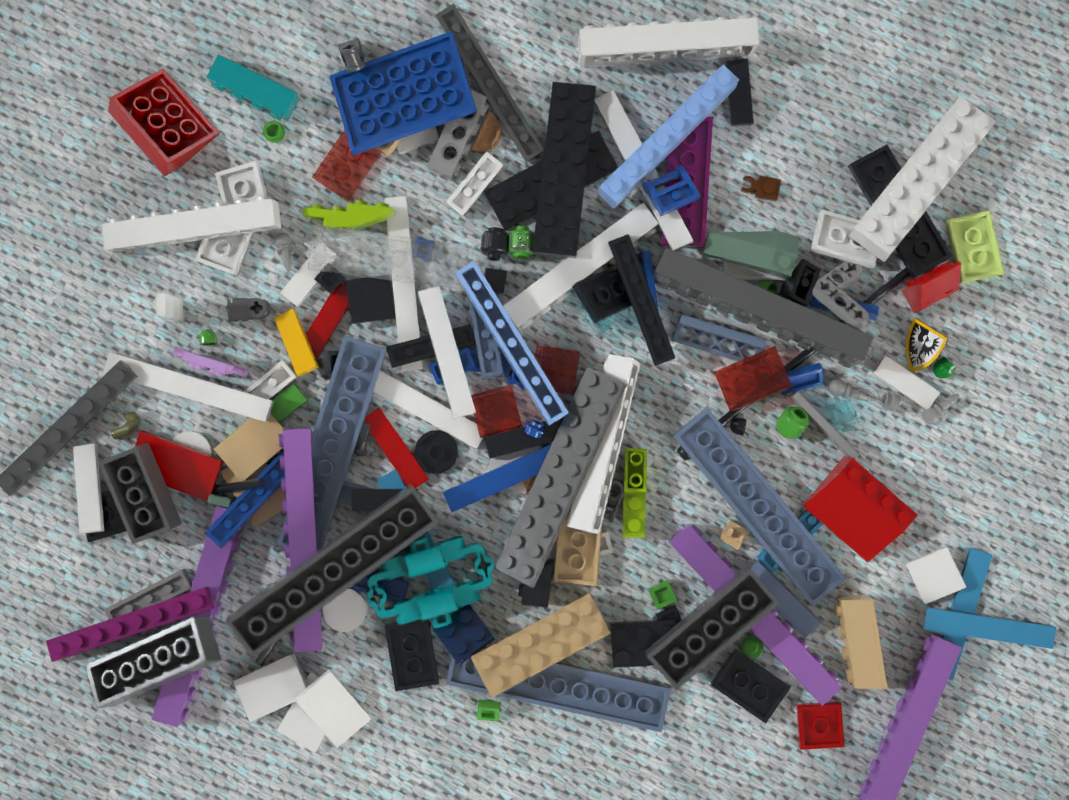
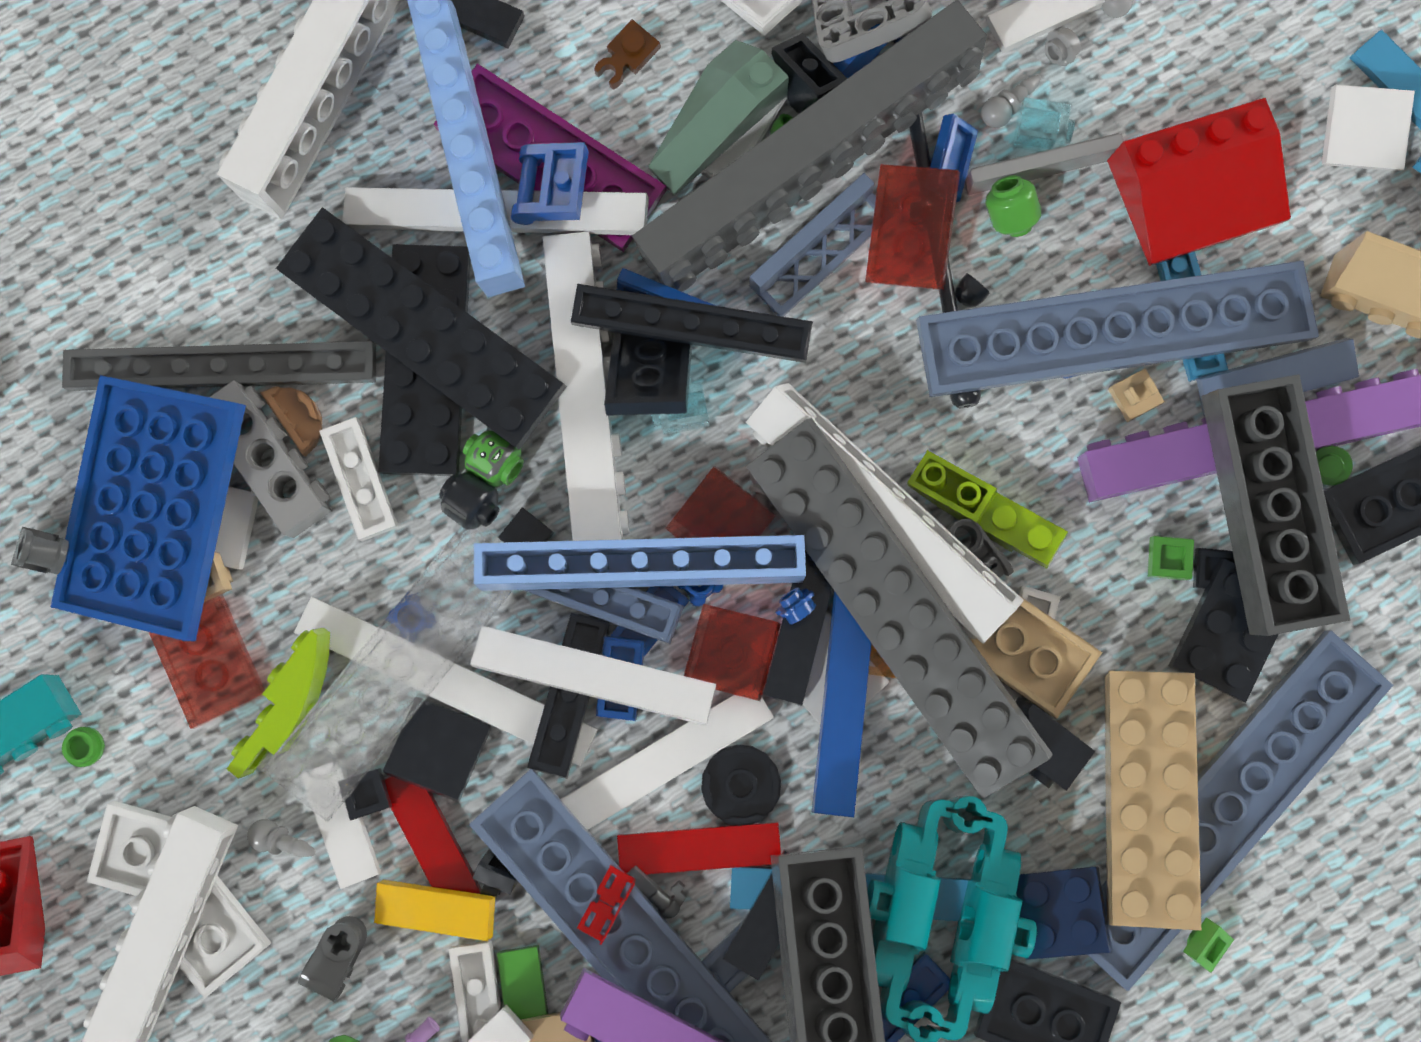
camera: 50 degrees left, 5 degrees down
(349, 420) = (603, 910): none -> red piece

